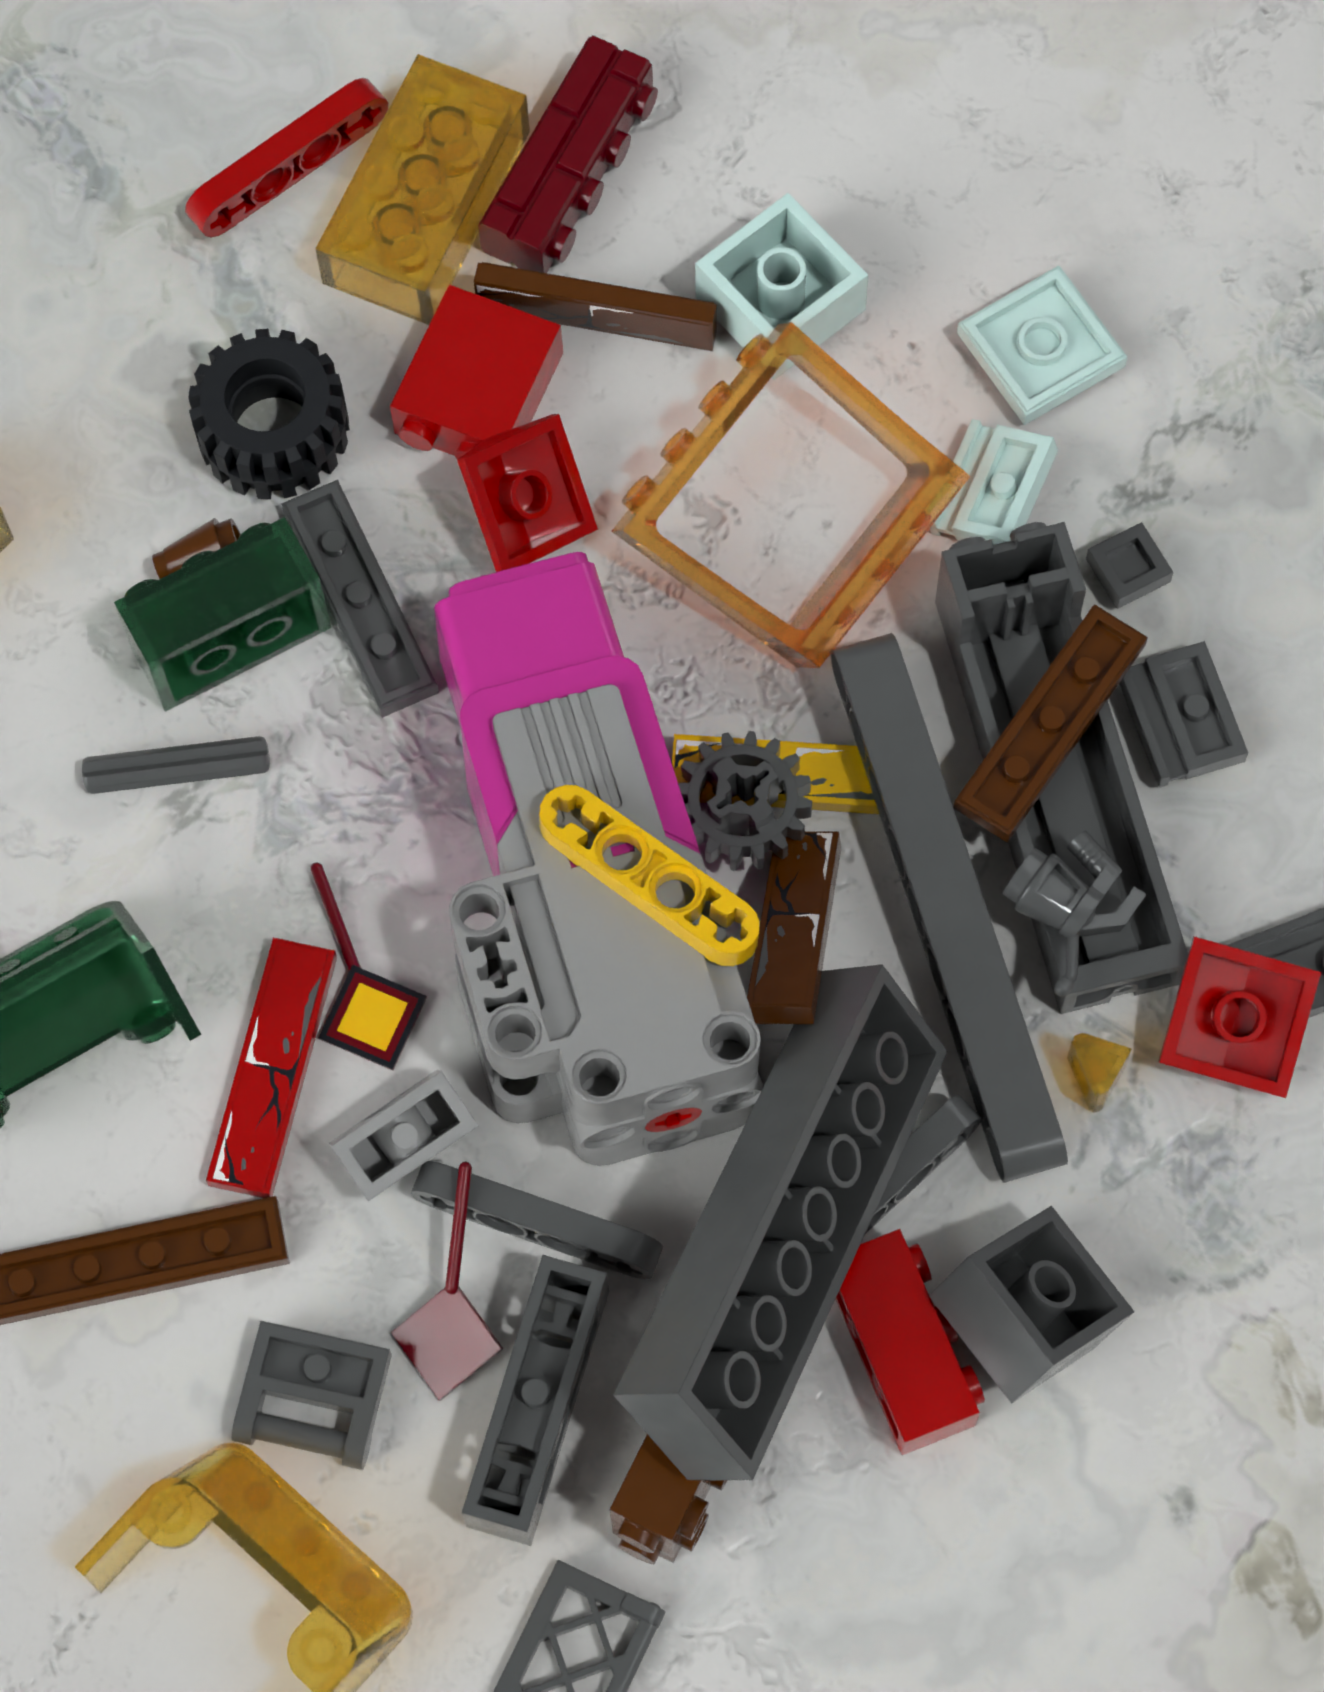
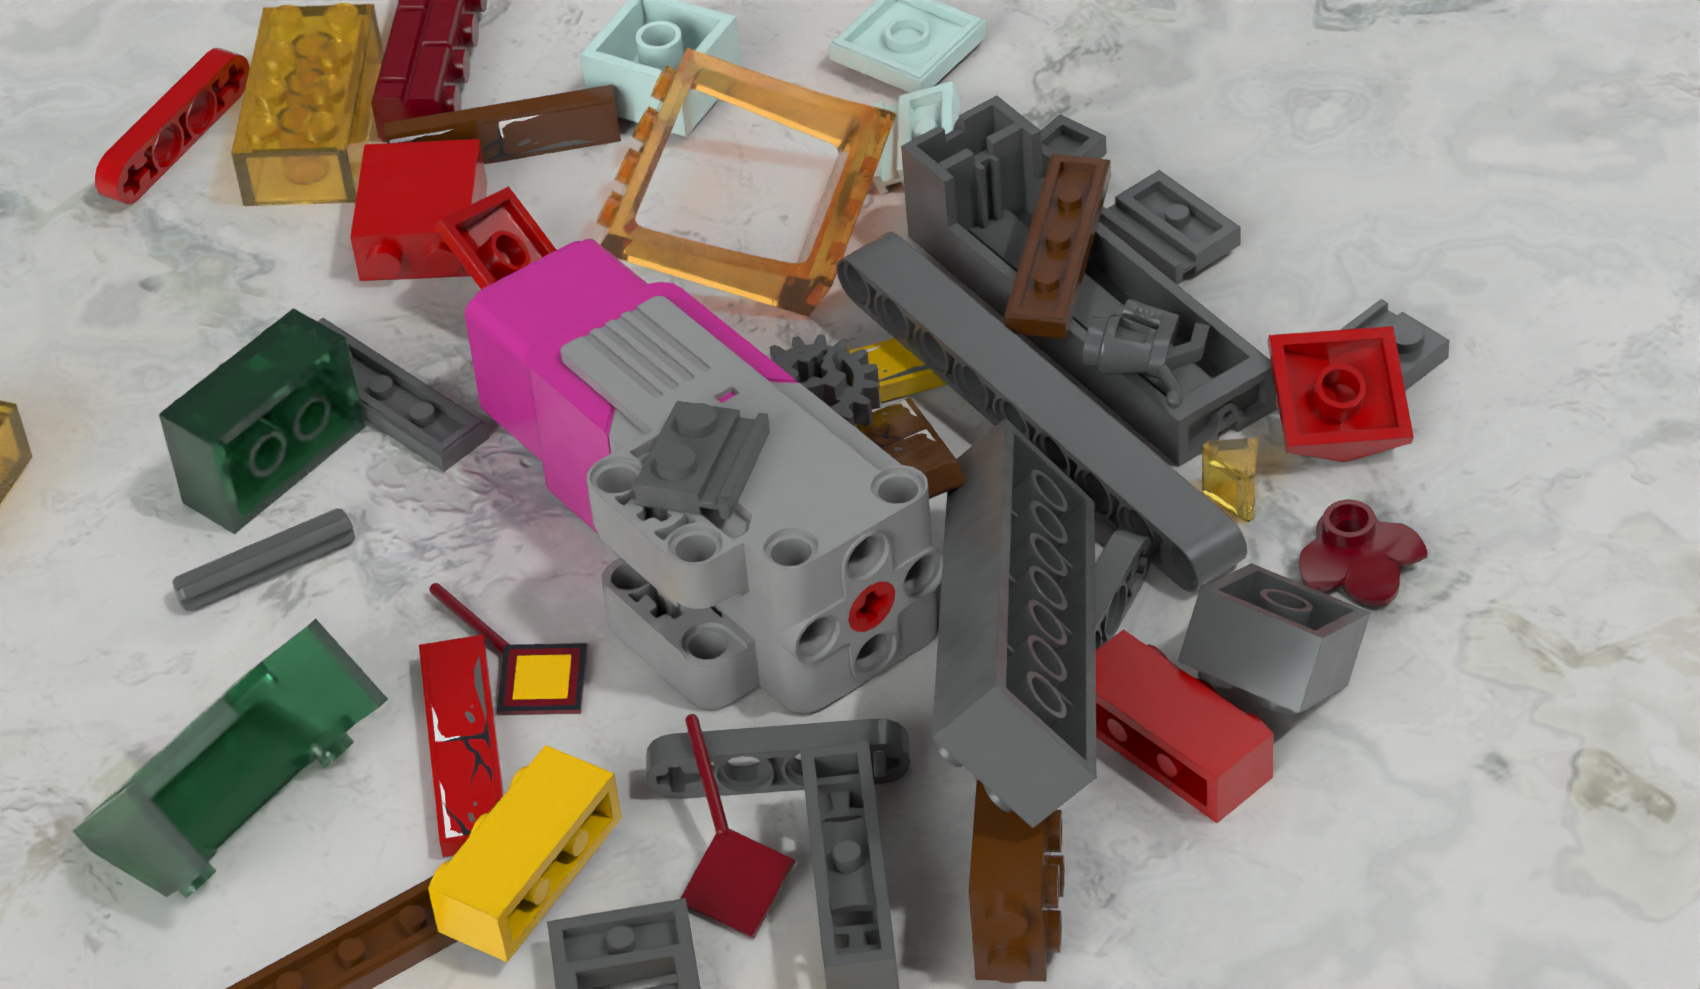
camera: 20 degrees left, 25 degrees down
(259, 371) = (235, 279): black tyre -> none
(265, 1243) = (524, 852): none -> yellow brick
(403, 1134) = (625, 715): light grey brick -> none
(561, 932) = (701, 459): none -> dark grey plate
(642, 881) = (852, 411): yellow beam -> none
(1172, 1218) = (1359, 553): none -> dark red plate

